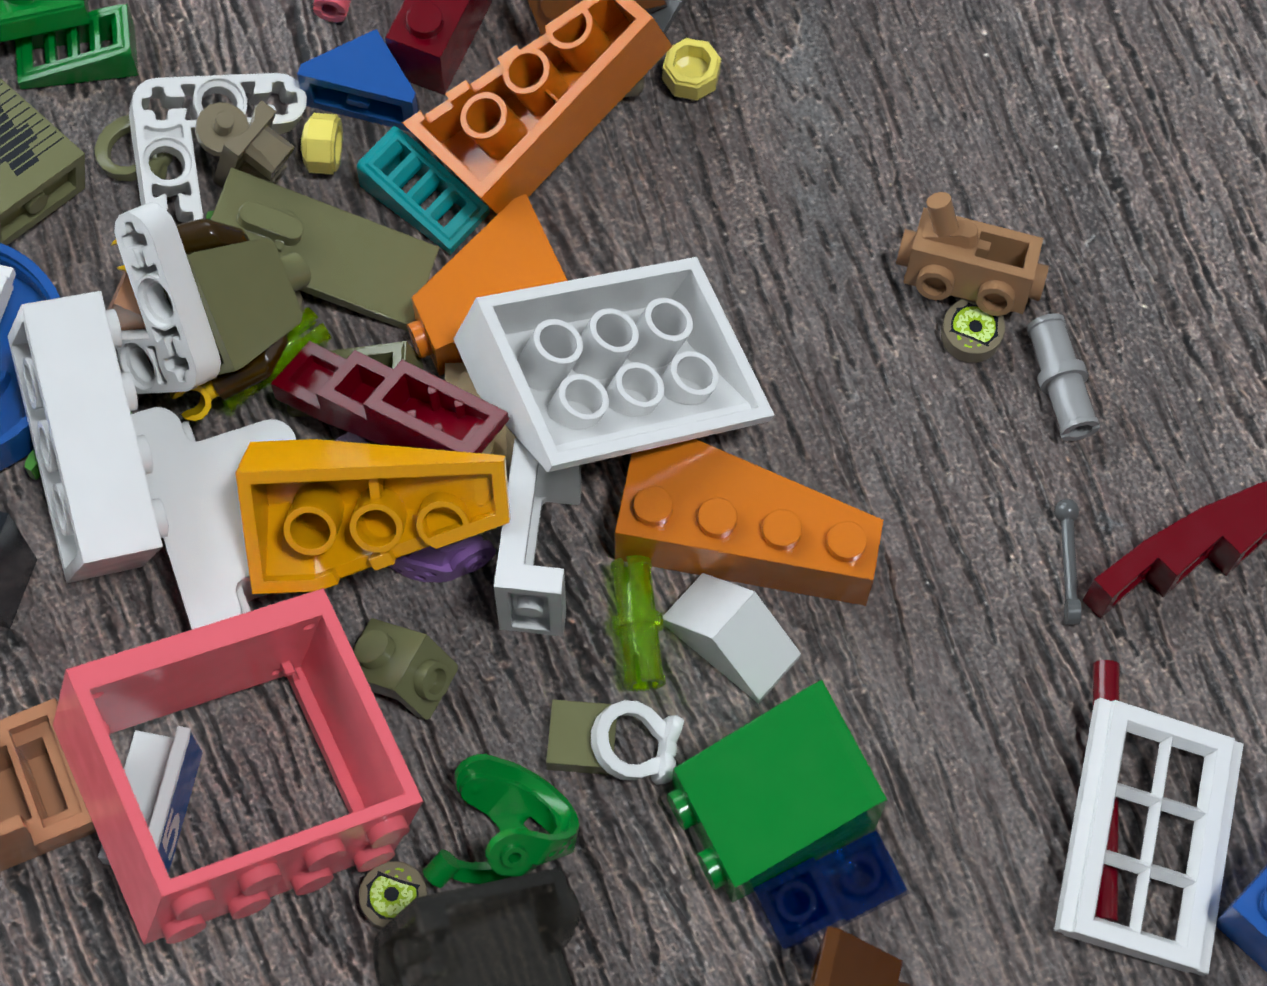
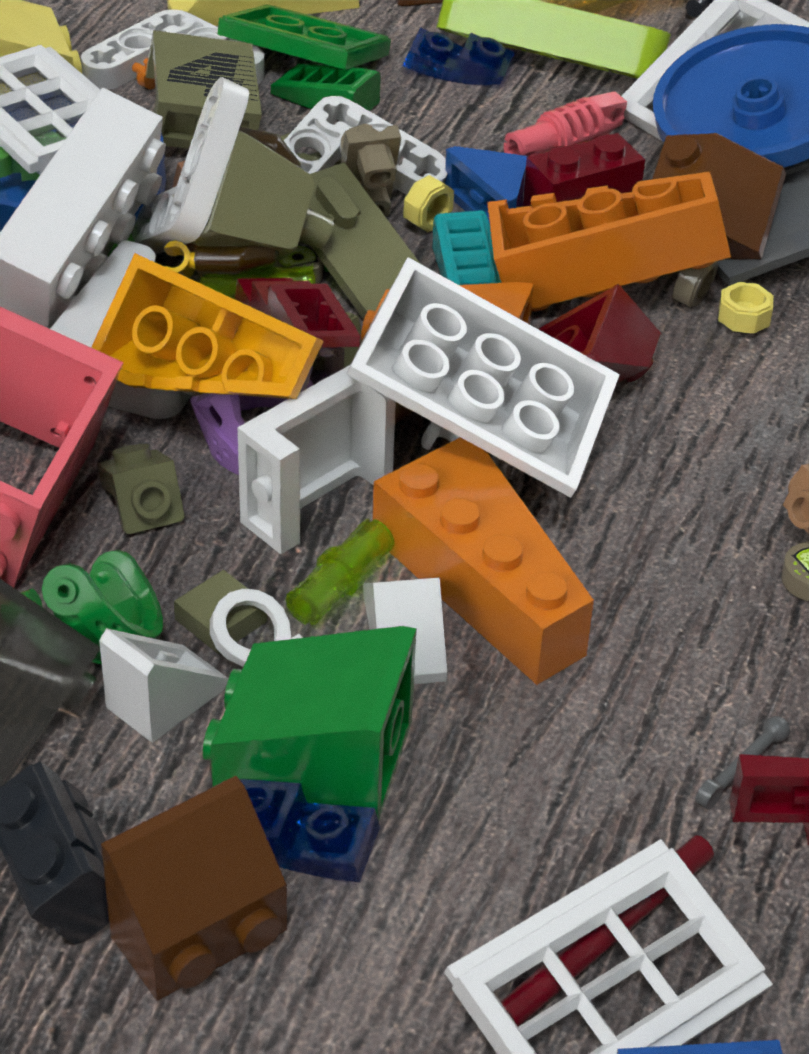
camera: 40 degrees right, 25 degrees down
(614, 845) = (154, 681): none -> white slope
(619, 221) = (609, 332): none -> dark red slope

